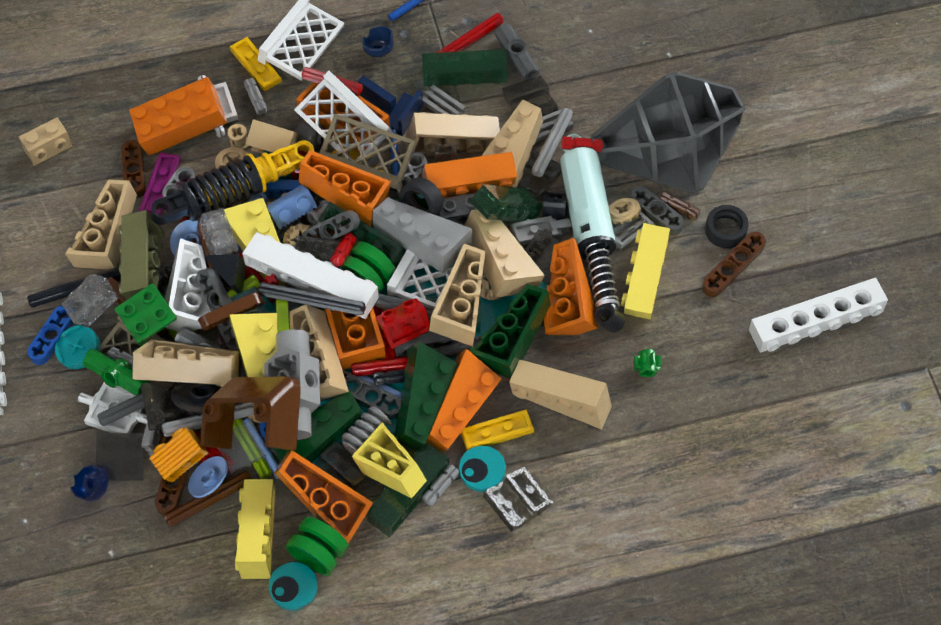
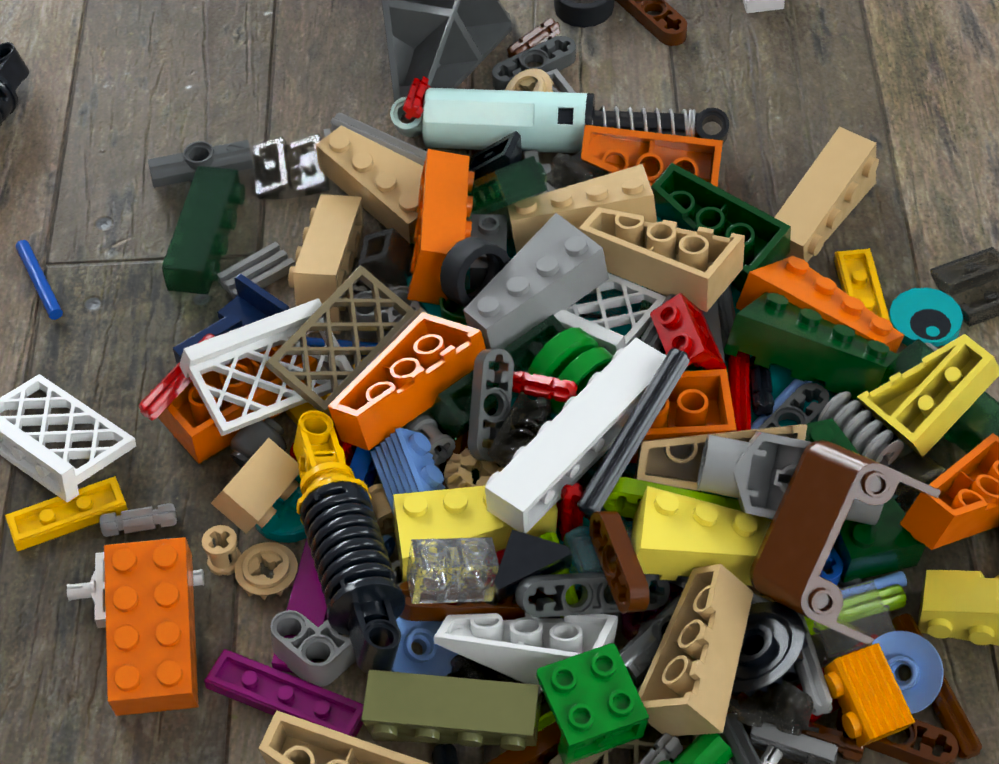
camera: 75 degrees left, 10 degrees down
(127, 162) = (211, 717): reddish brown beam -> none
(378, 42) = (106, 326): dark blue hair -> none
(474, 34) = (141, 217): red axle -> none
(646, 271) = (636, 76): light yellow wedge -> none
(647, 363) = (788, 107): green gear -> none

